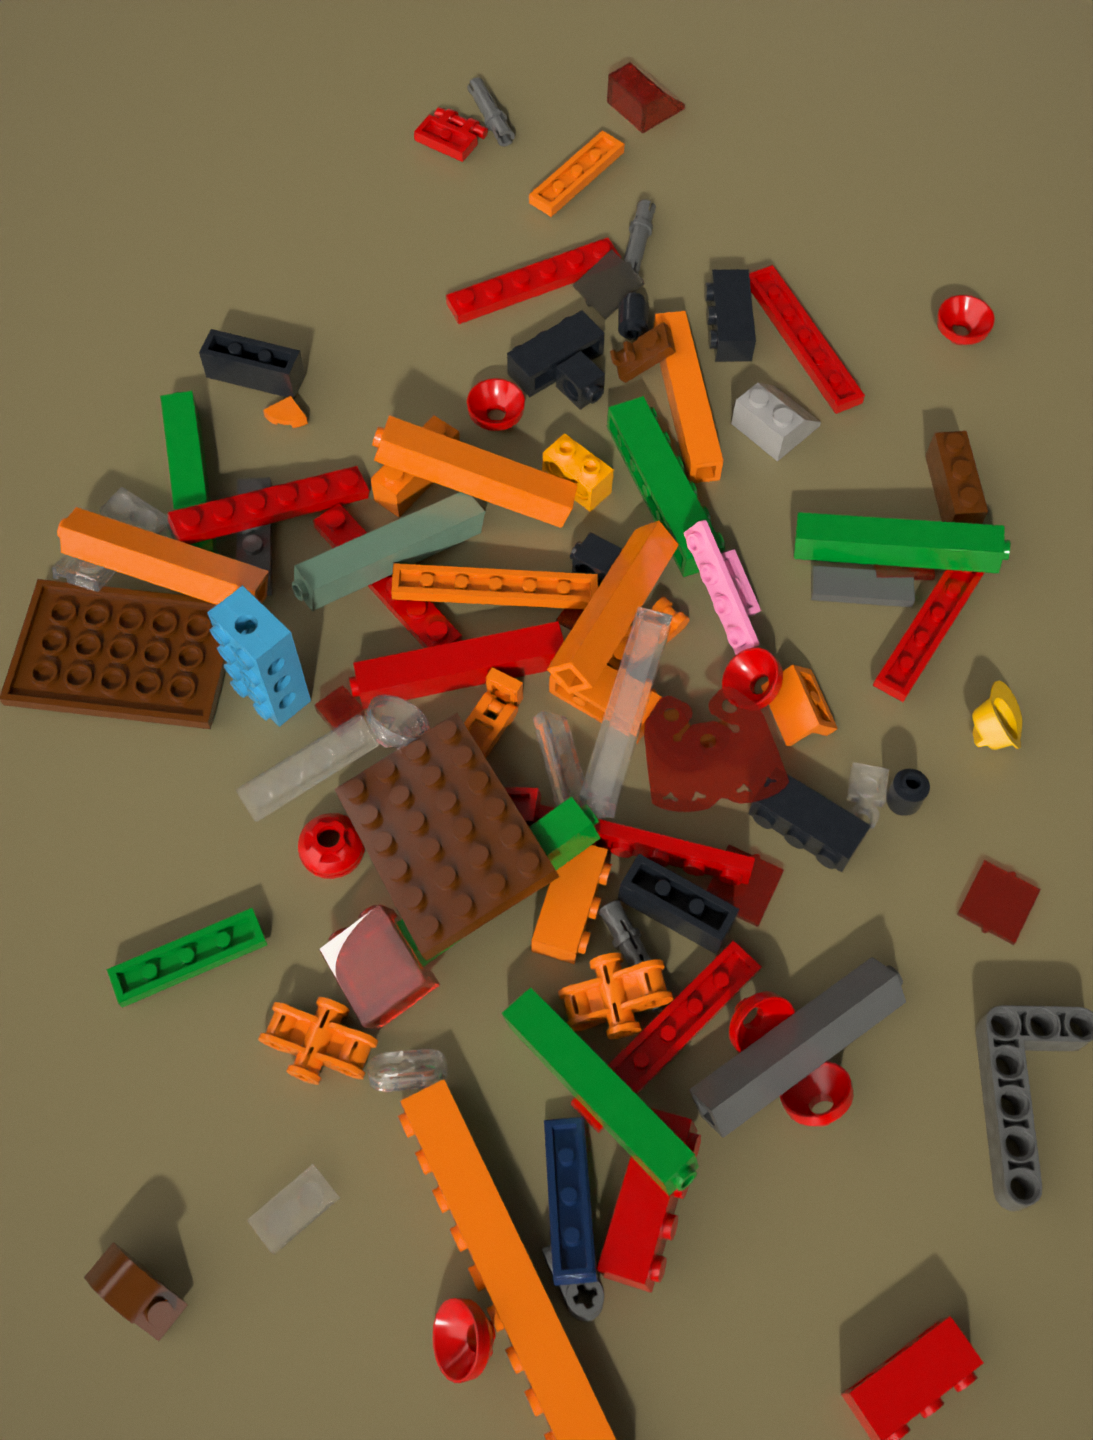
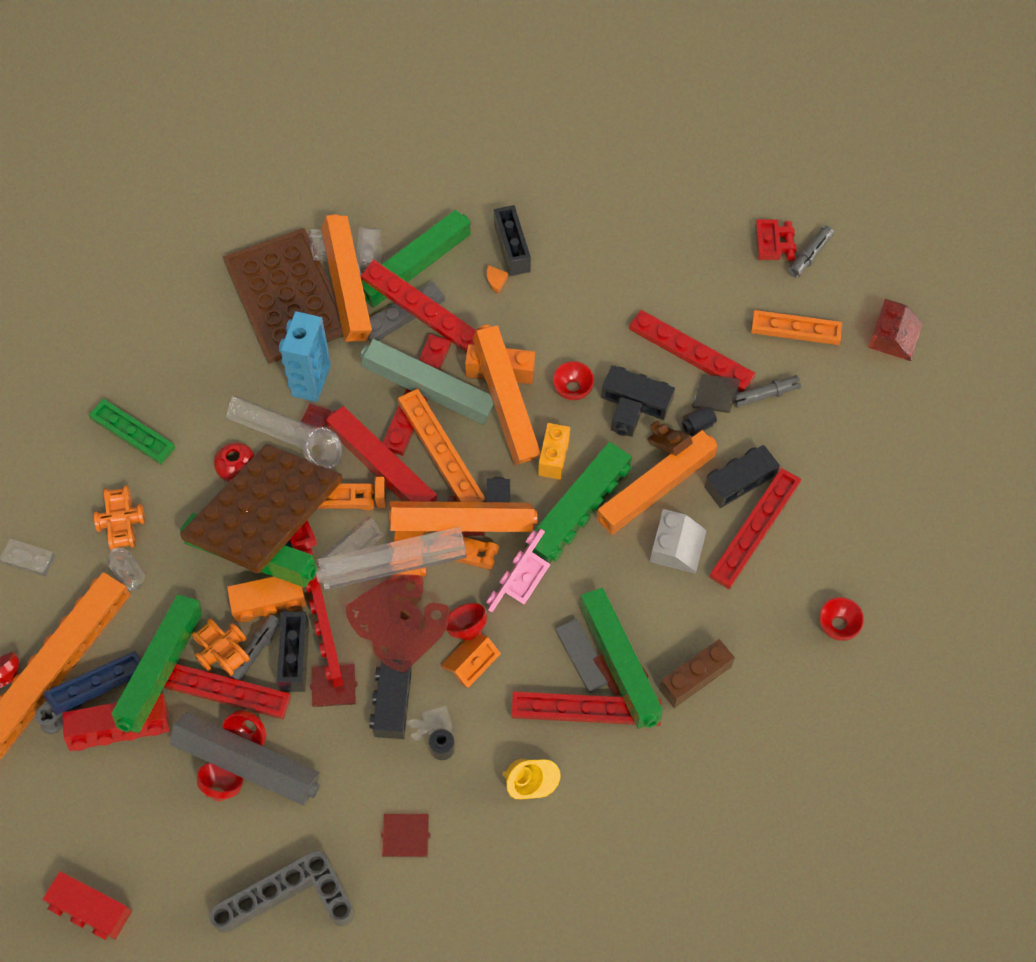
camera: 60 degrees right, 0 degrees up
(377, 967) = (168, 519): clear red panel -> none

